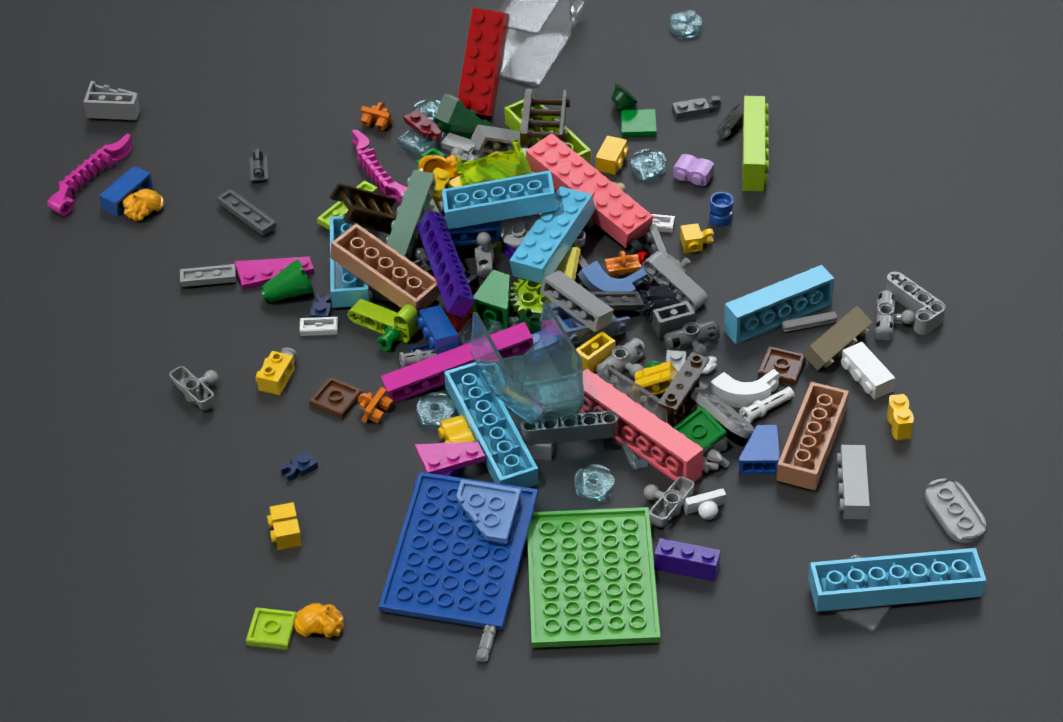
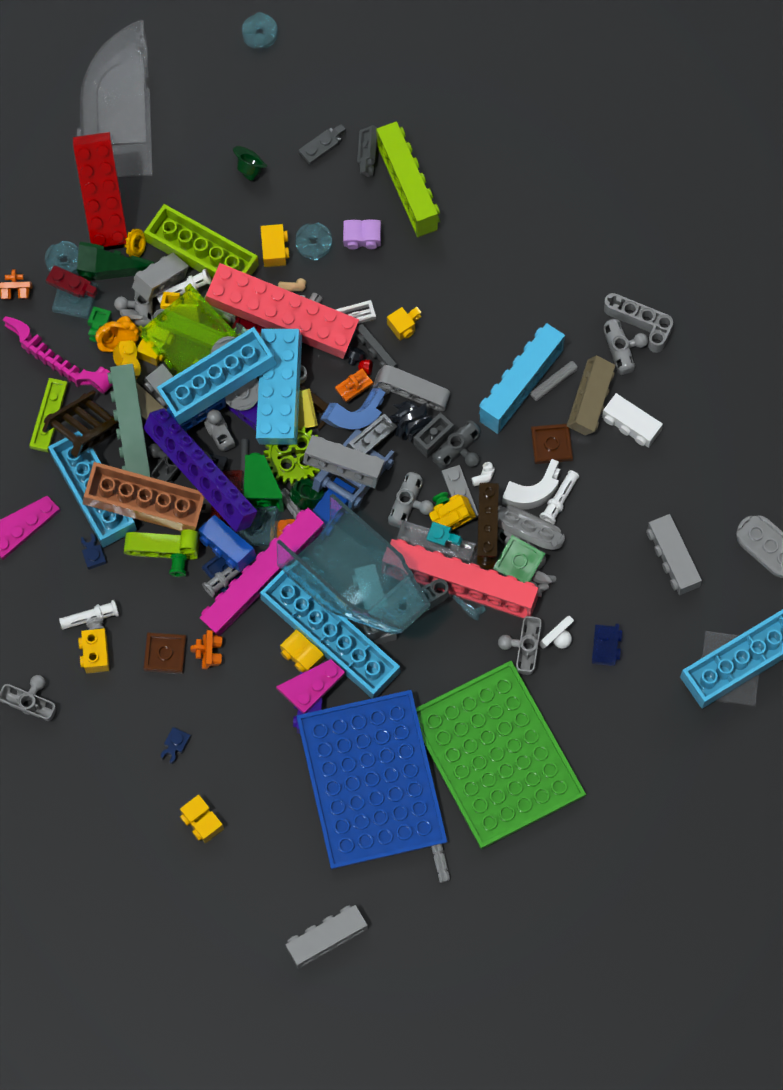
camera: 25 degrees left, 25 degrees up
(271, 628) = (247, 929): lime tile -> none
(287, 284) = (48, 541): green cone -> none
(298, 346) = (98, 612): none -> white pin
(319, 326) = (105, 581): white tile -> none
(319, 620) = (286, 905): light orange hair -> none
(339, 659) = (326, 936): none -> light grey brick
(427, 405) = (262, 639): clear light blue plate -> none
(452, 141) = (115, 288): light grey tile -> none
(489, 507) = (381, 730): medium blue plate -> none
(497, 110) = (135, 243): none -> yellow gear
(529, 112) = (175, 234): dark brown fence -> none
(595, 351) = (380, 507): yellow brick -> none
(597, 491) = (441, 659): clear light blue plate -> none
(634, 383) = (441, 535): none -> teal plate
(638, 123) = (277, 188): tile -> none
(685, 262) = (405, 362): light grey bar -> none
(687, 559) = (571, 702): dark purple brick -> none
(721, 209) = (413, 276): blue wheel -> none
(749, 530) = (605, 645): none -> clear blue bracket
(761, 452) = (581, 554): slope -> none
(812, 436) = (618, 519): nougat brick -> none
(900, 417) = (686, 467): yellow brick -> none

